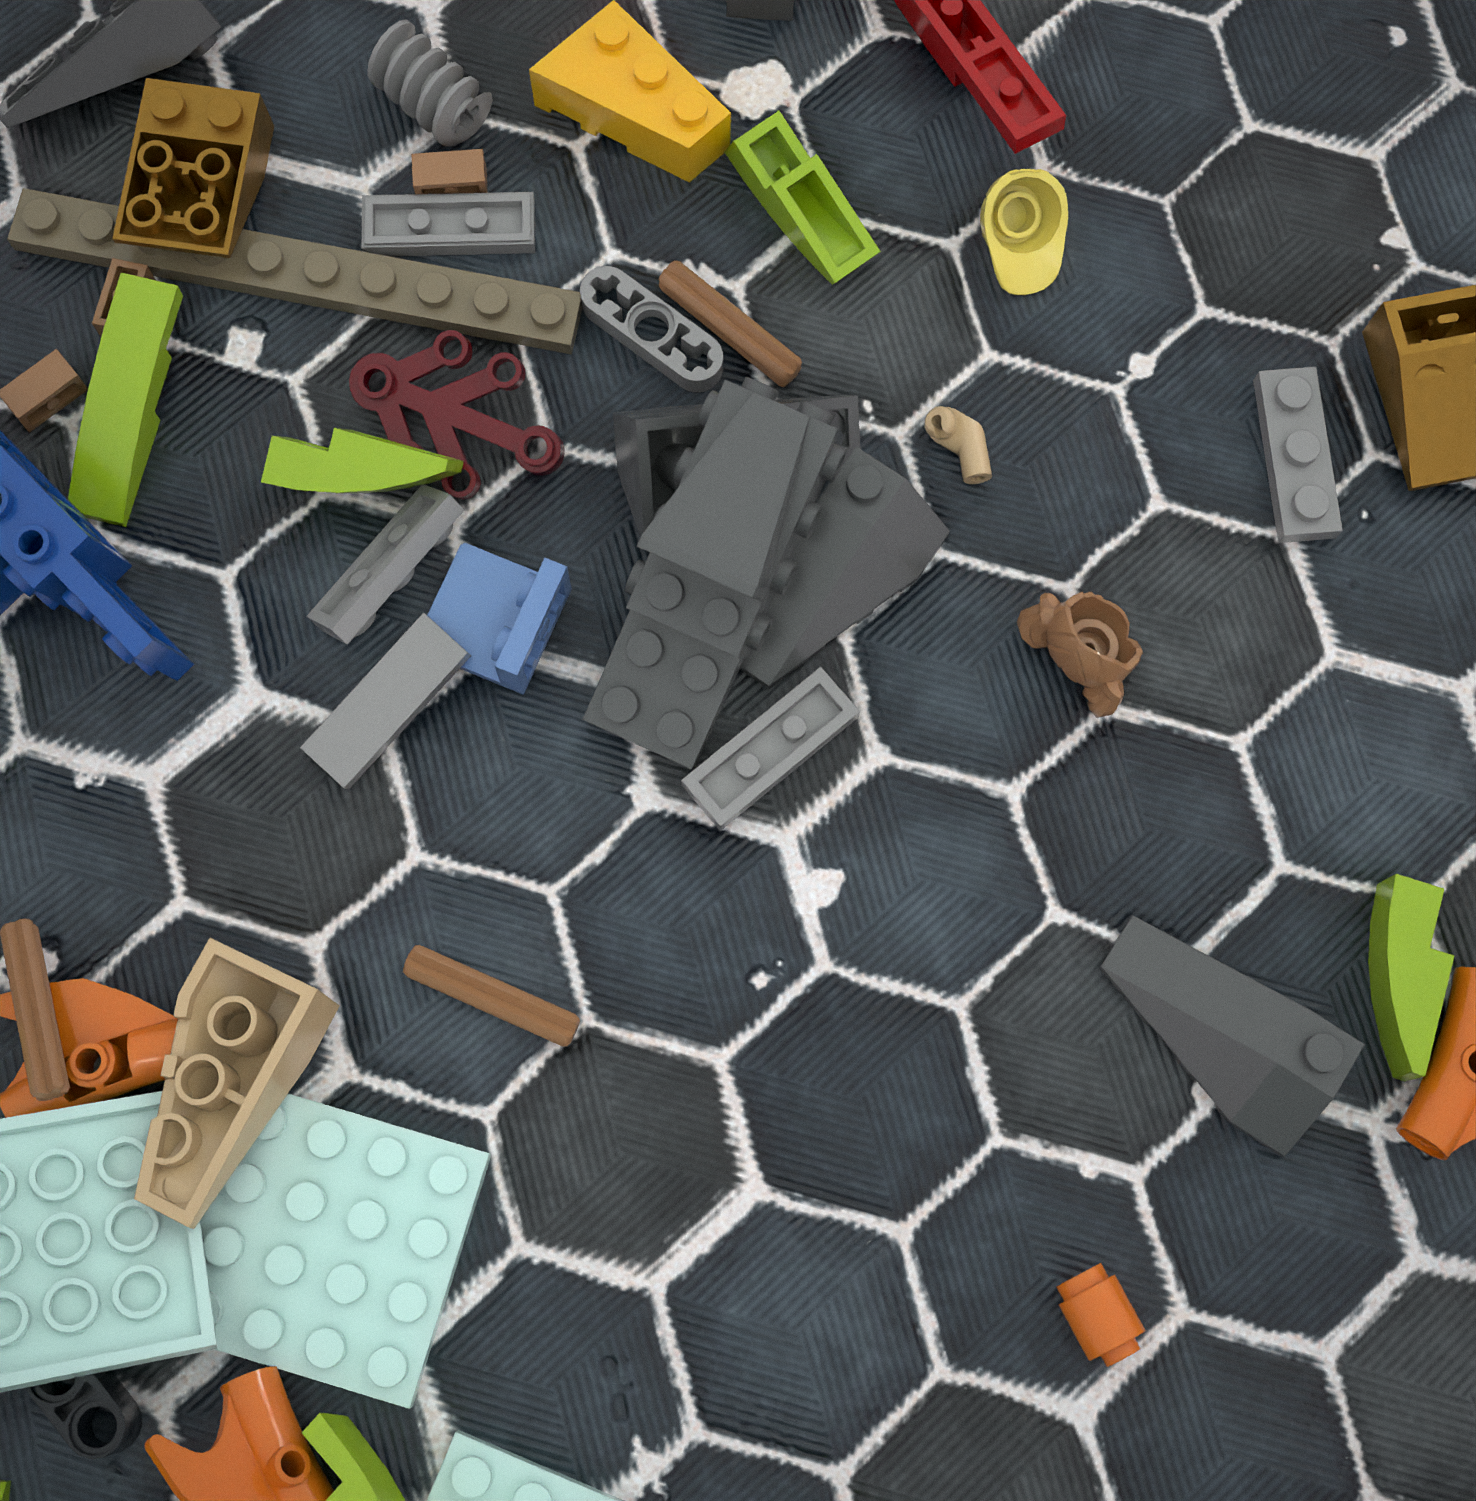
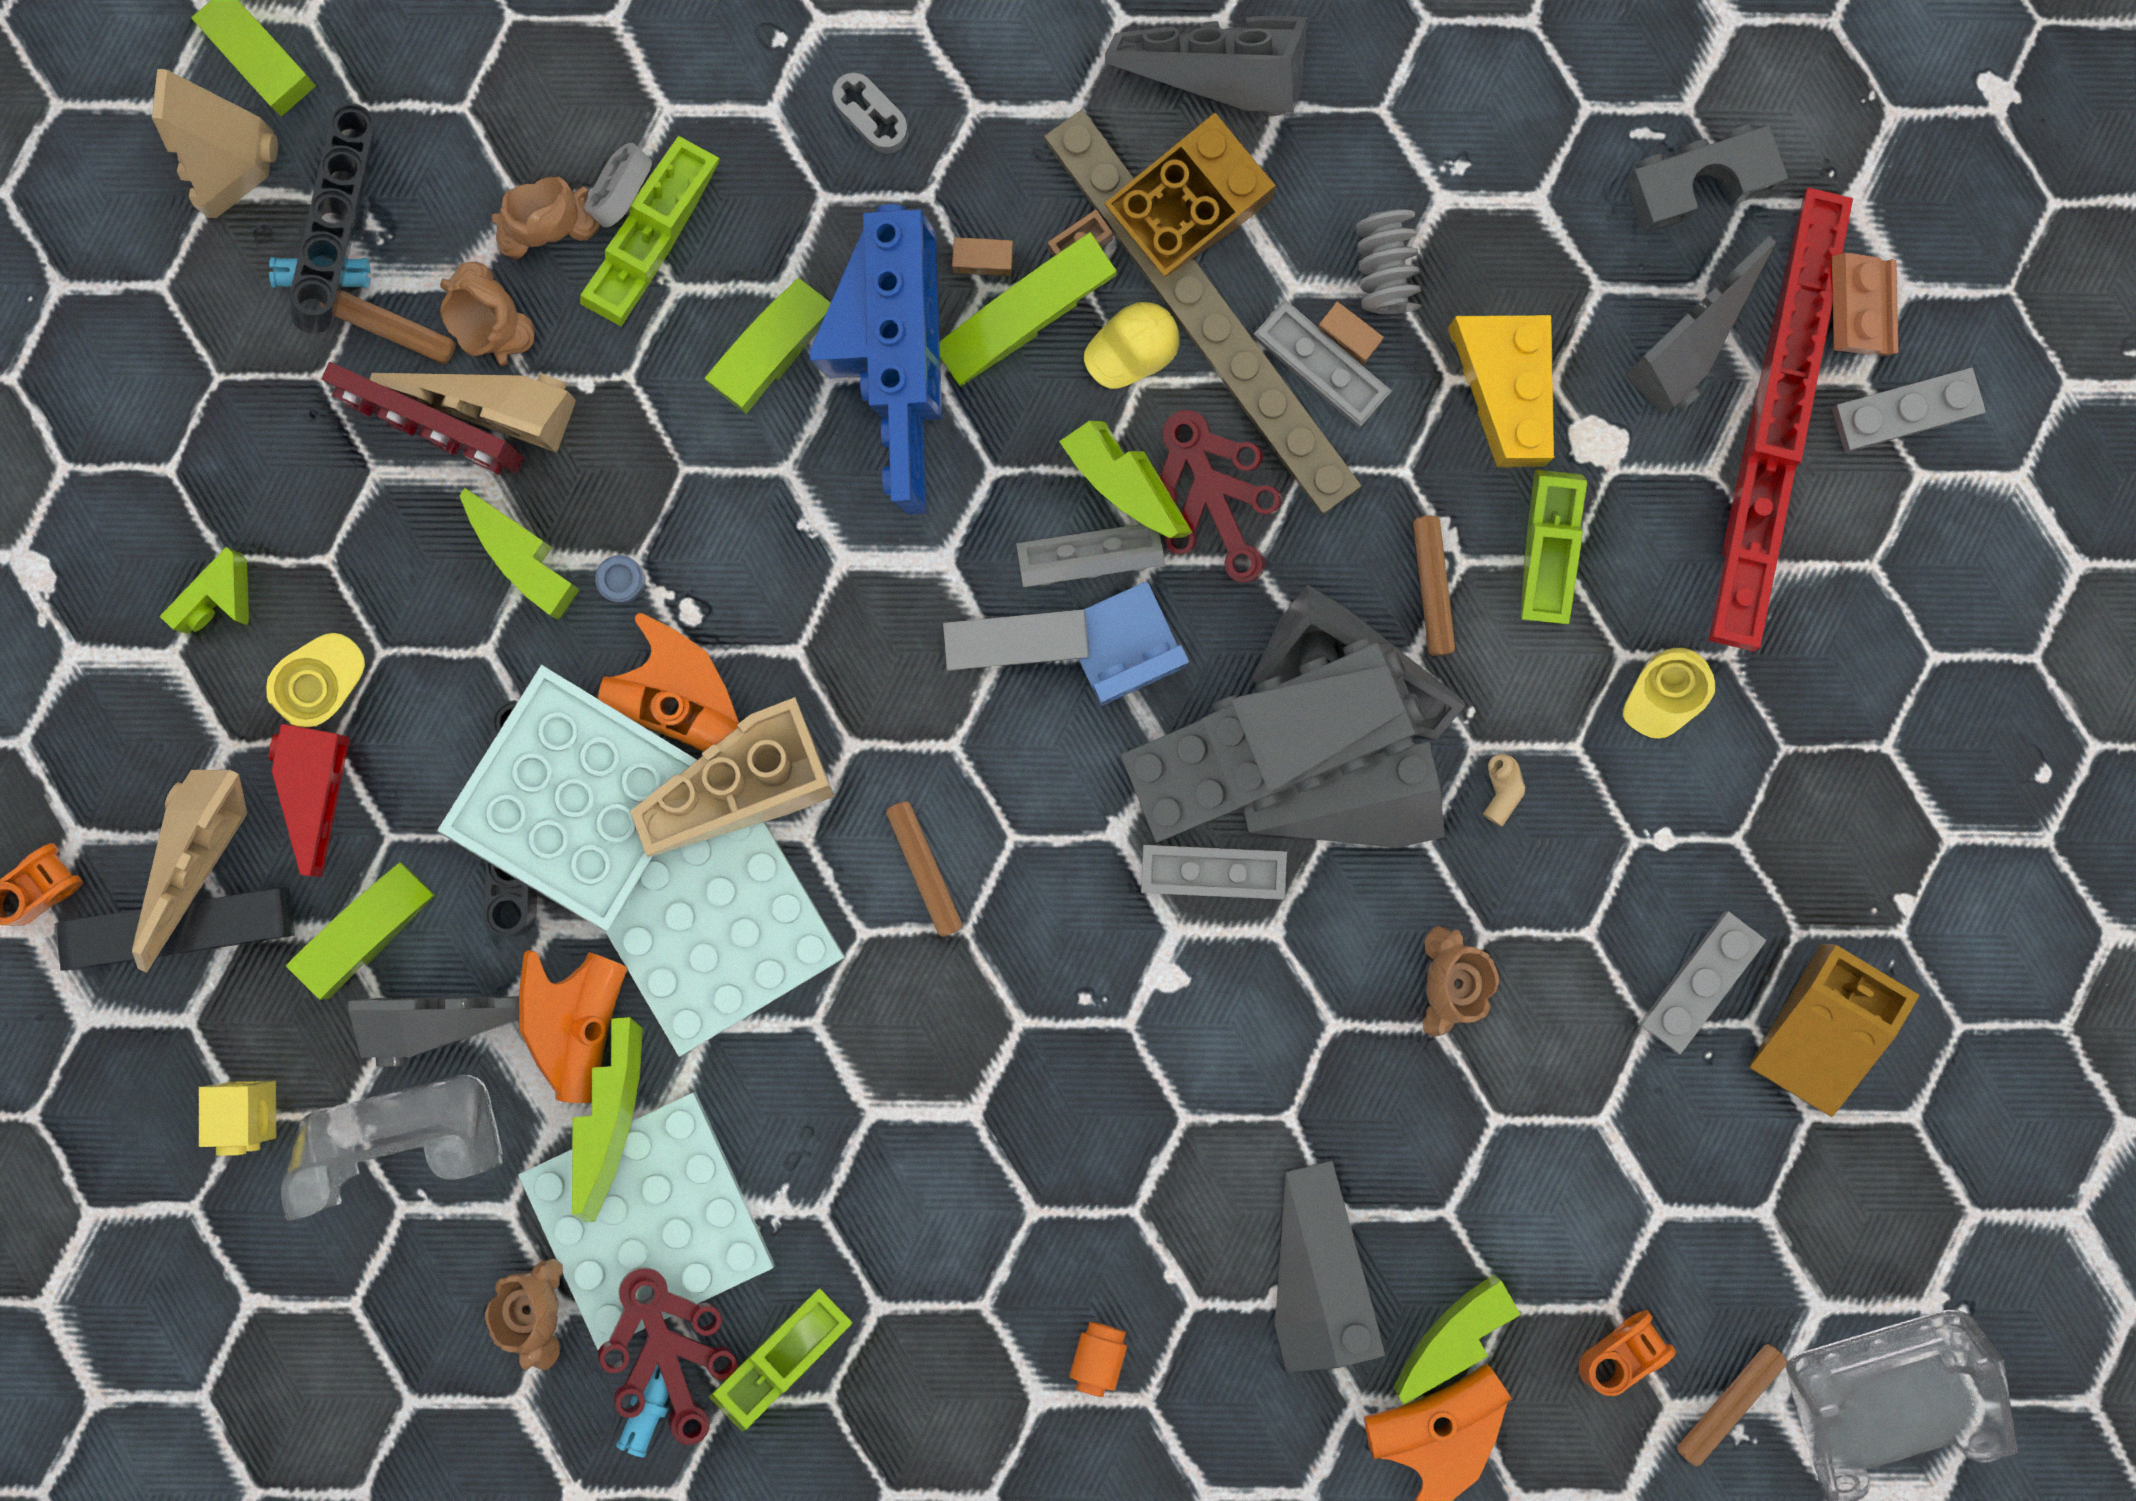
camera: 45 degrees right, 10 degrees up
(34, 1010) = (664, 648): medium nougat axle -> none
(258, 351) = (1132, 345): none -> light yellow piece
(609, 318) = (1399, 578): light grey beam -> none

